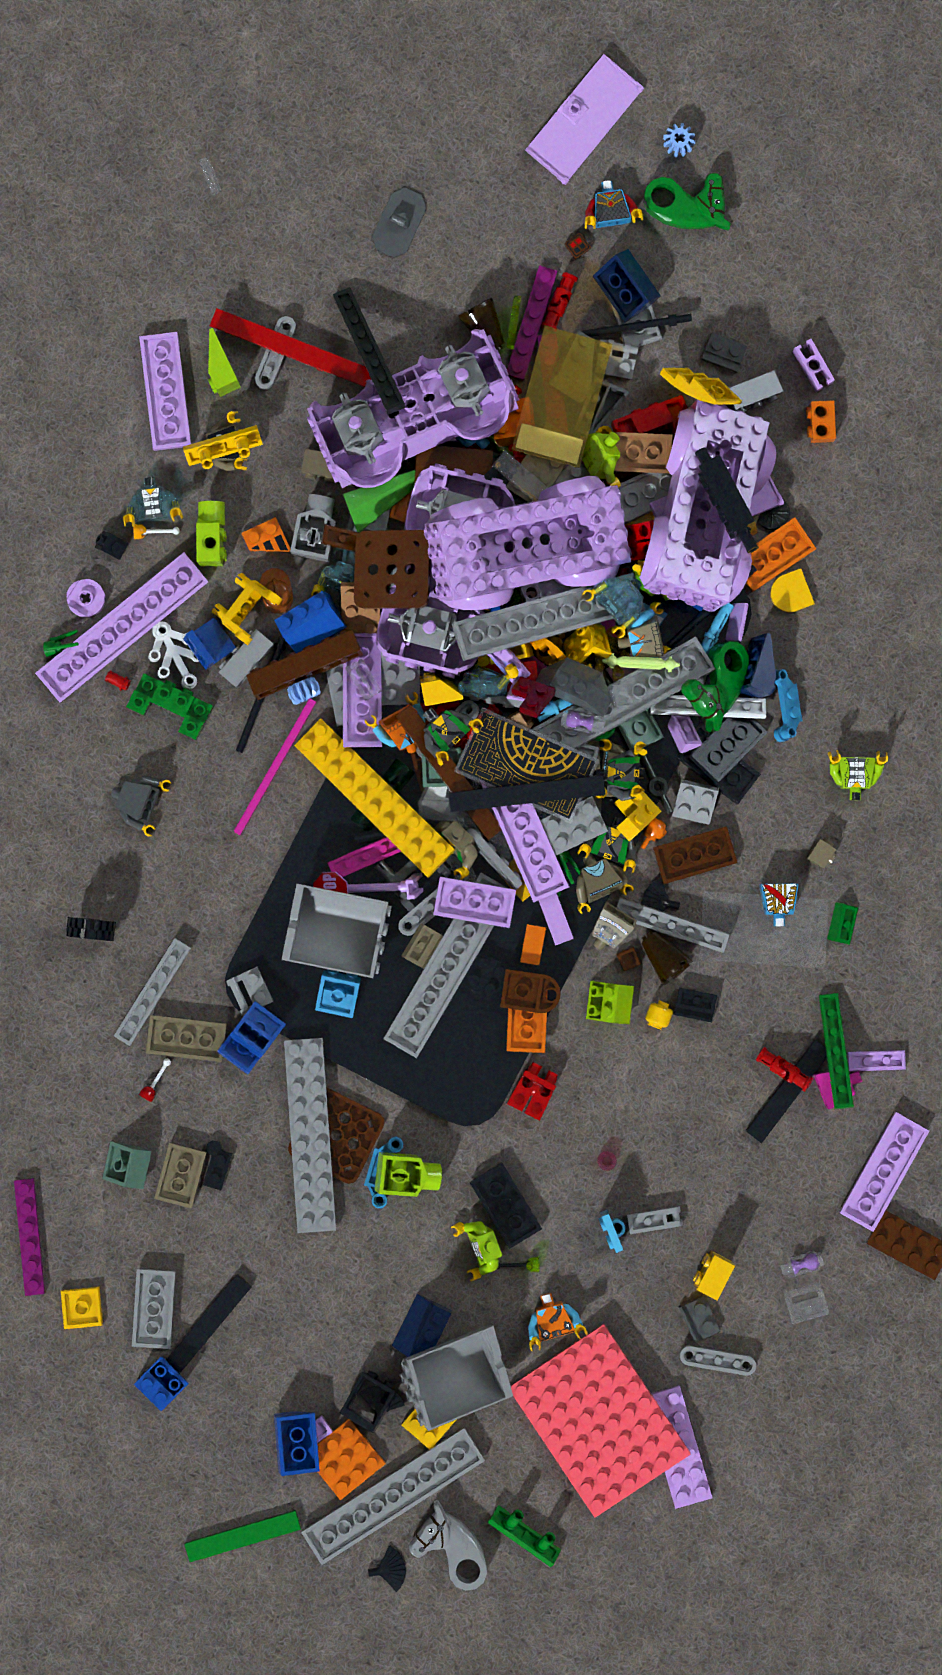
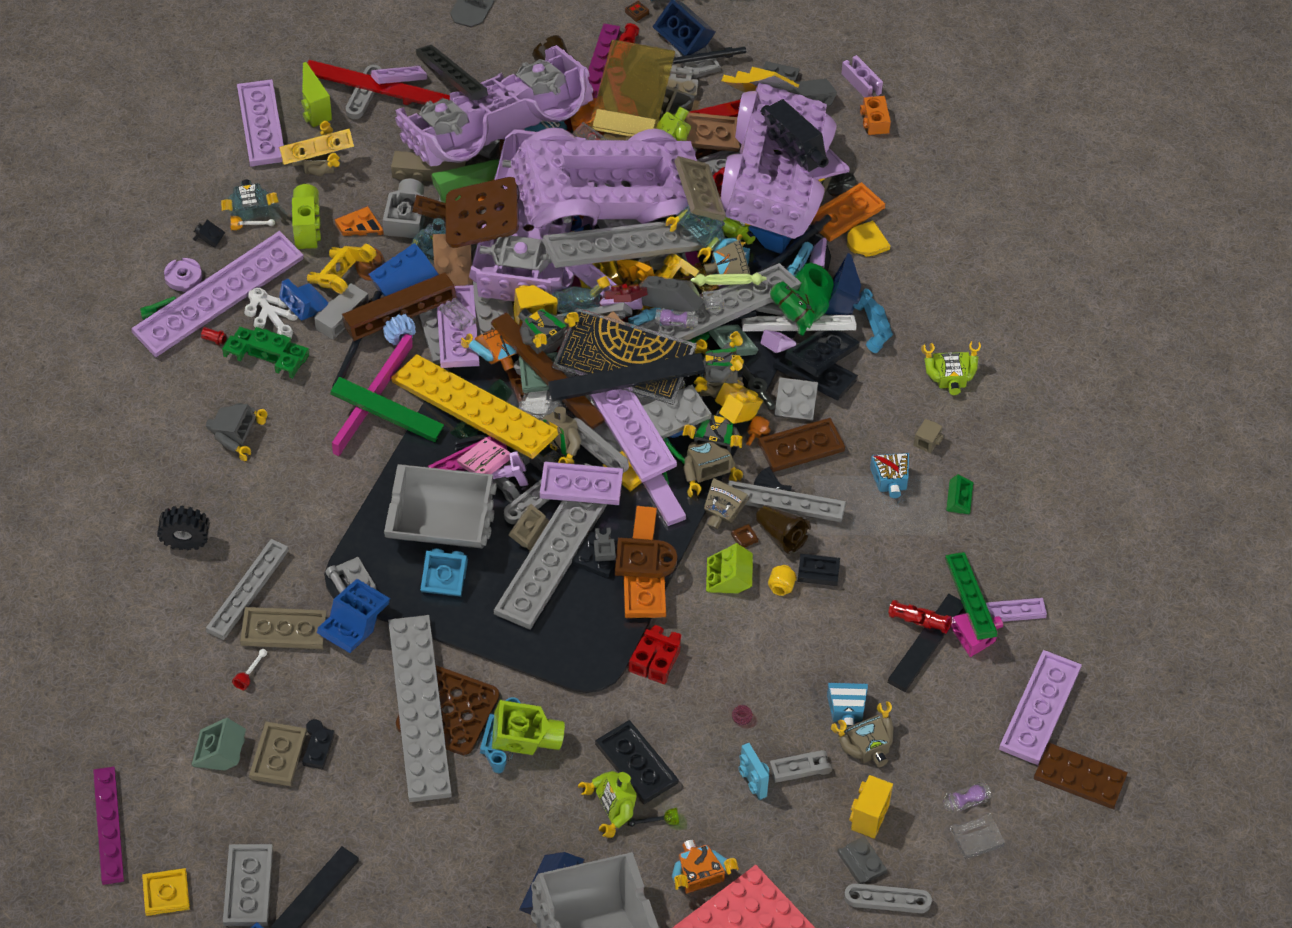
camera: 10 degrees left, 35 degrees down
(288, 794) = (387, 409): none -> green tile
(313, 334) = (398, 74): none -> lavender tile
(381, 870) = (484, 457): none -> bright pink tile
(491, 980) = (604, 546): none -> dark grey plate
(513, 322) = (584, 53): clear neon green tile -> none
(620, 561) = (700, 188): none -> dark tan plate
(705, 1158) = (847, 701): none -> dark azure torso
(720, 1197) = (868, 738): none -> dark tan torso

